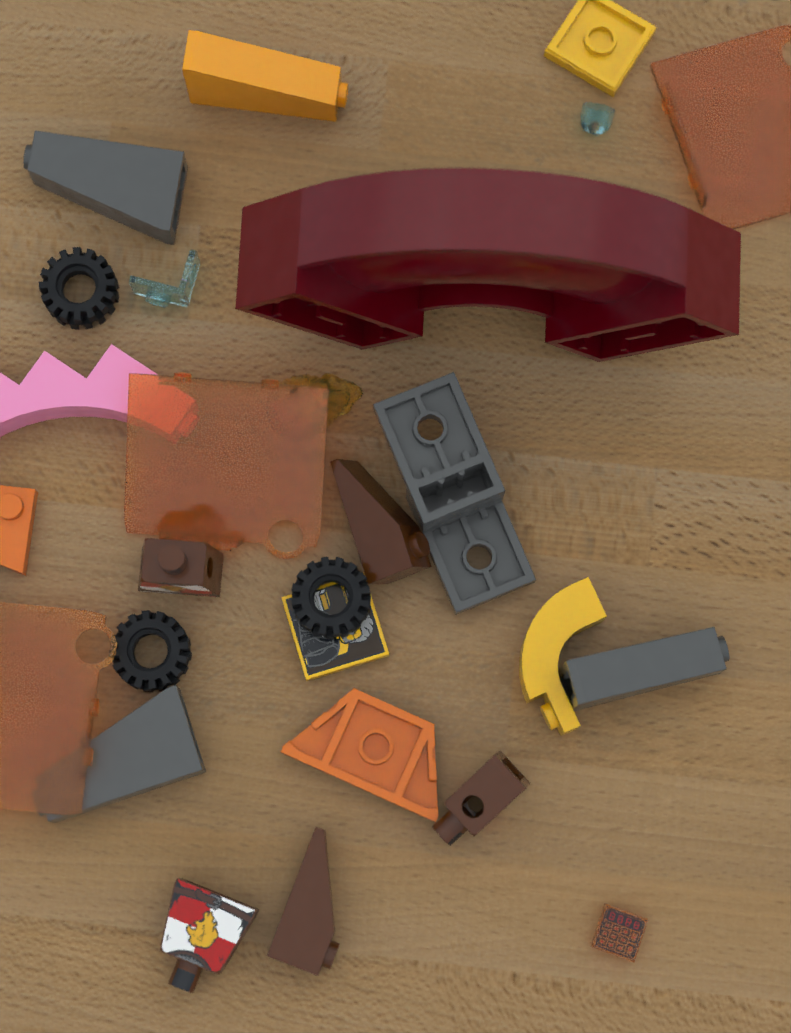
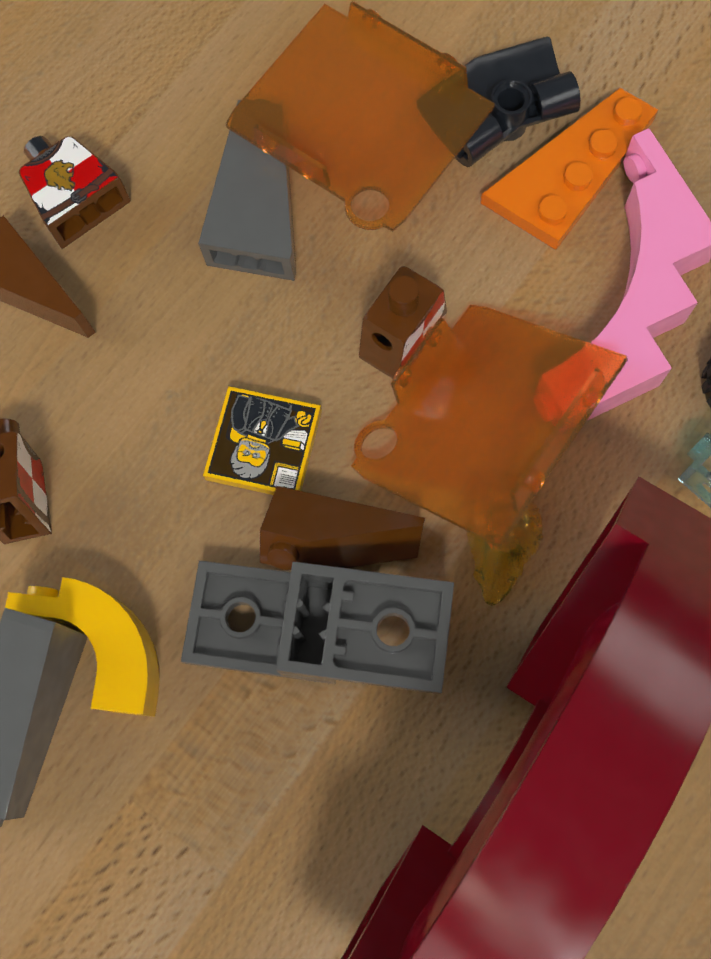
camera: 130 degrees right, 5 degrees down
(175, 662) = (341, 241): black tyre -> none
(331, 571) = (279, 416): black tyre -> none
(374, 750) = (122, 412): orange wing -> none

